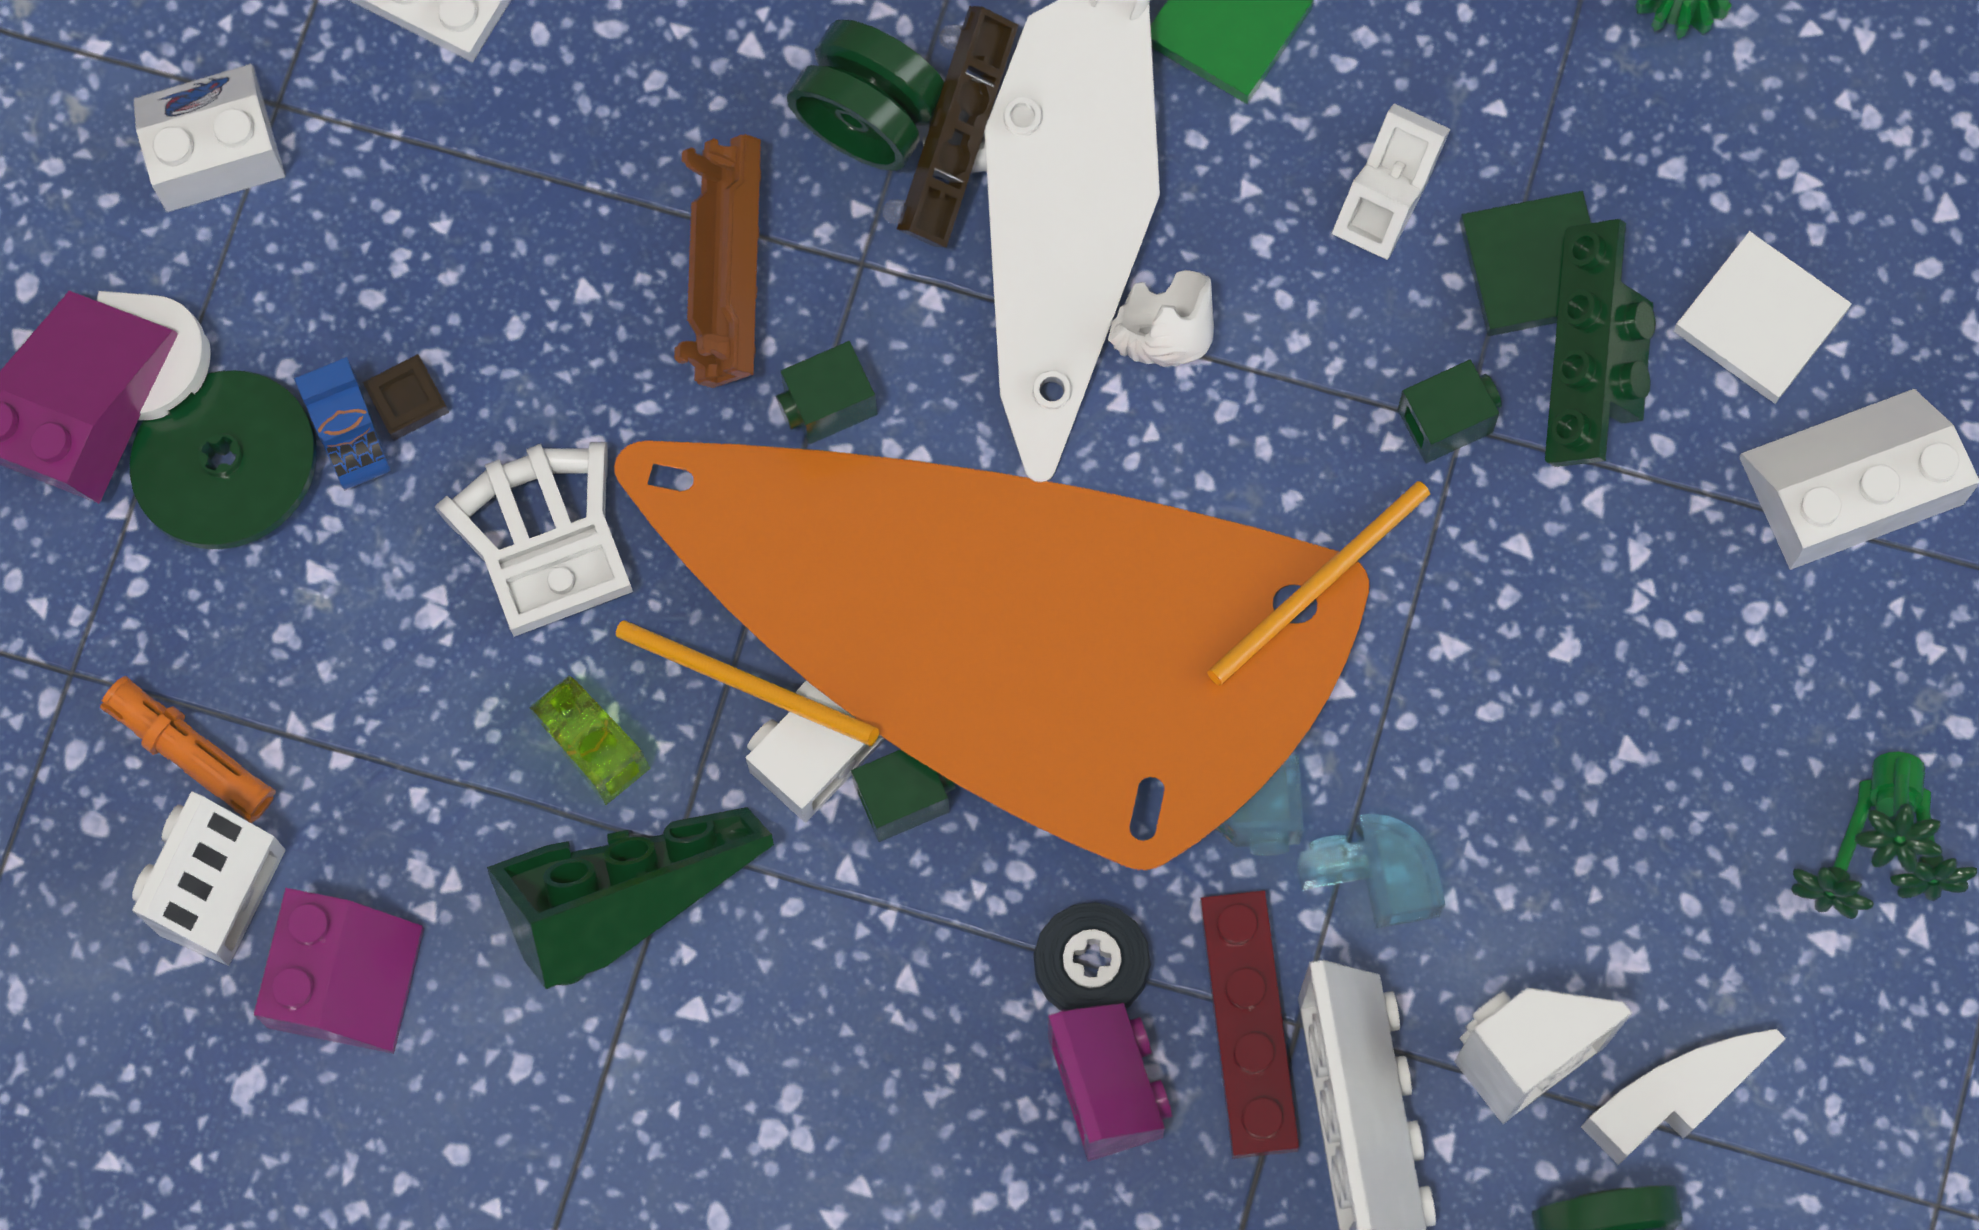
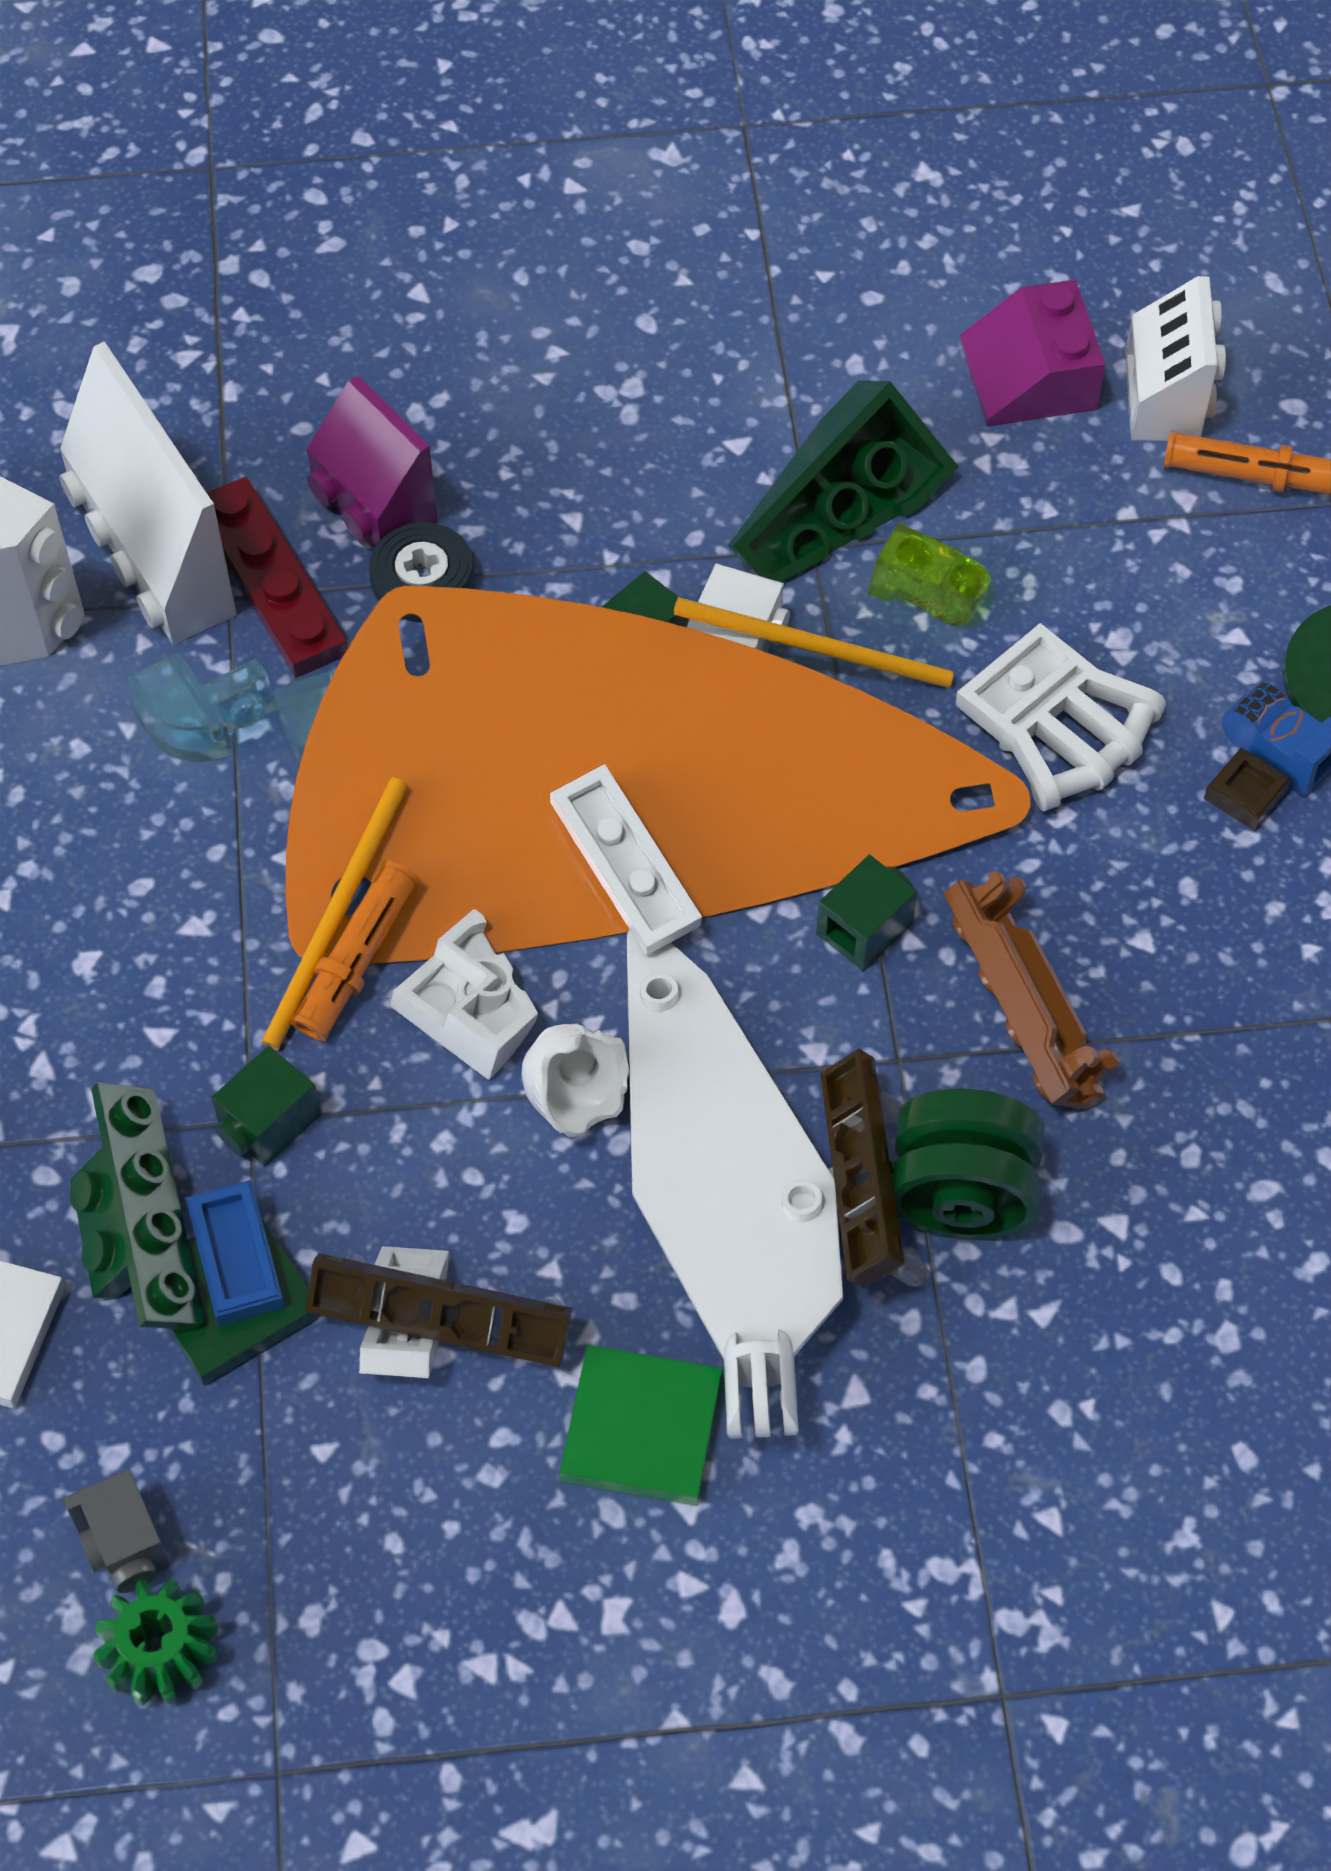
camera: 155 degrees right, 15 degrees down
(1031, 519) = (625, 859): none -> white plate
(1224, 458) = (468, 998): none -> white slope
(1333, 521) = (343, 970): none -> orange pin
(1363, 156) = (438, 1309): none -> dark brown piece
(1520, 280) = (234, 1253): none -> blue tile
(1689, 82) = (117, 1531): none -> dark grey brick

